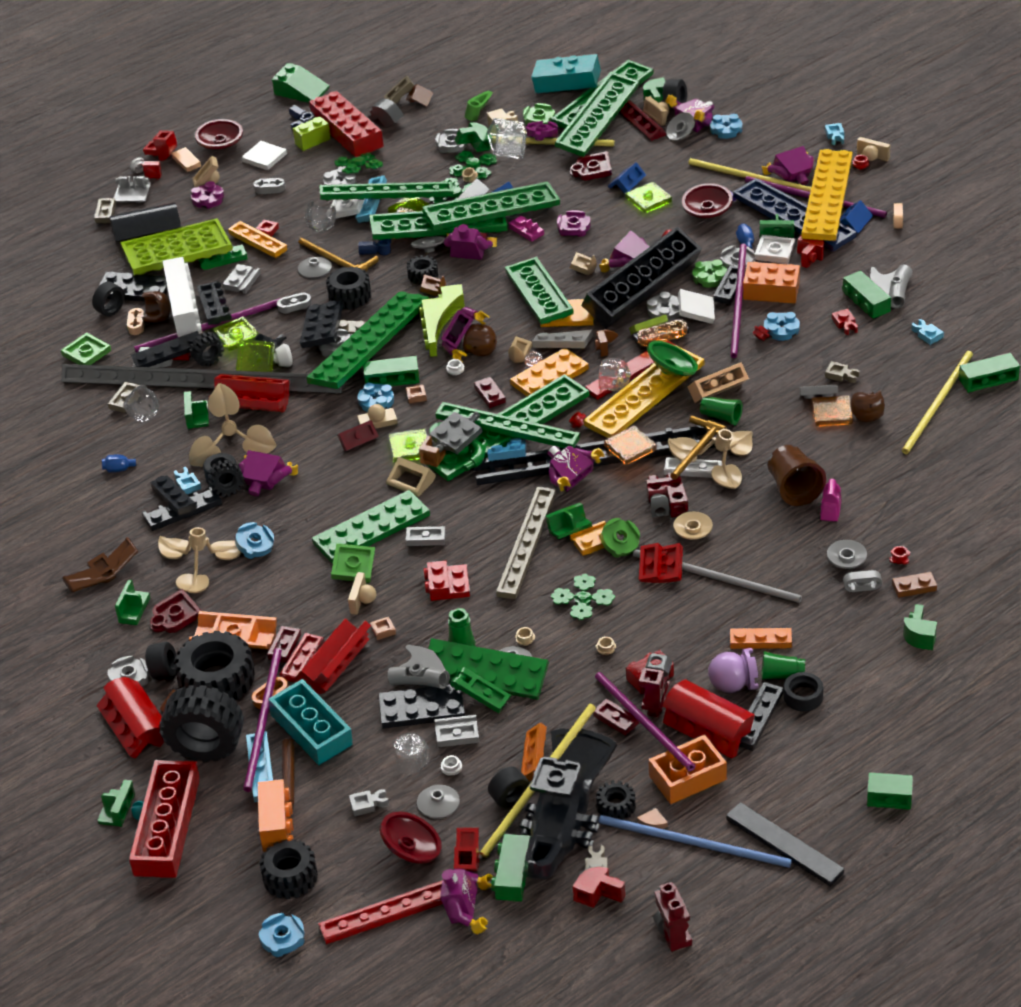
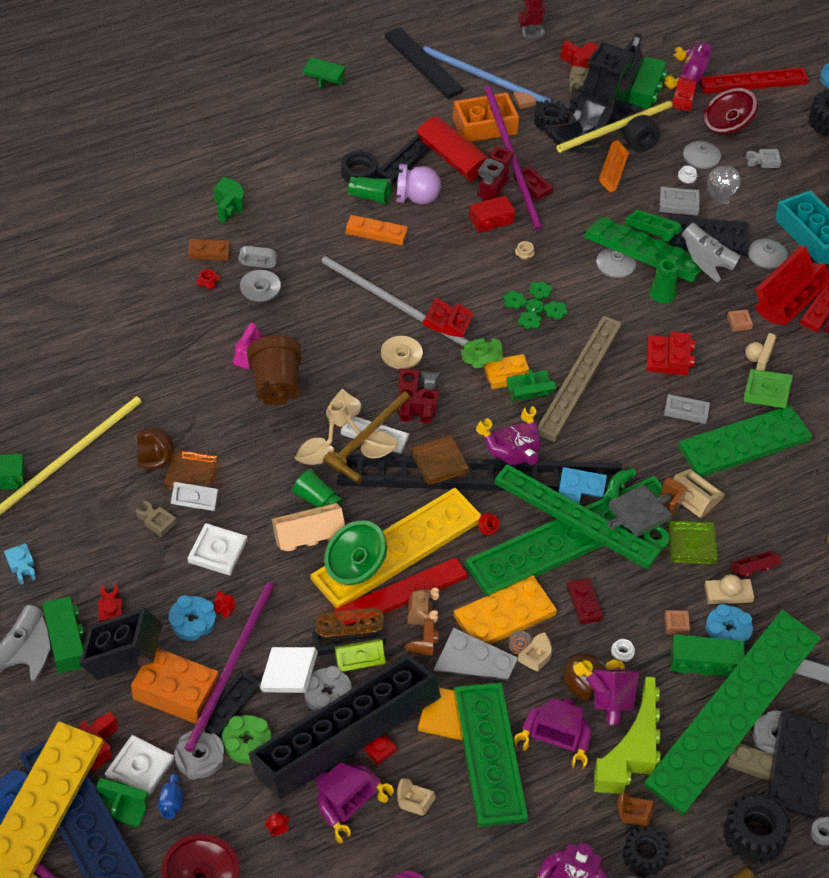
camera: 175 degrees left, 10 degrees up
(358, 703) = (767, 253): none -> light grey dish
(497, 307) = (559, 725): none -> magenta torso
(524, 636) = (600, 276): tan plate -> none
(612, 350) = (420, 606): none -> medium nougat piece
(613, 374) = (429, 563): clear piece -> none
(784, 368) = (217, 549): none -> white tile
(818, 278) = (121, 644): none -> black brick

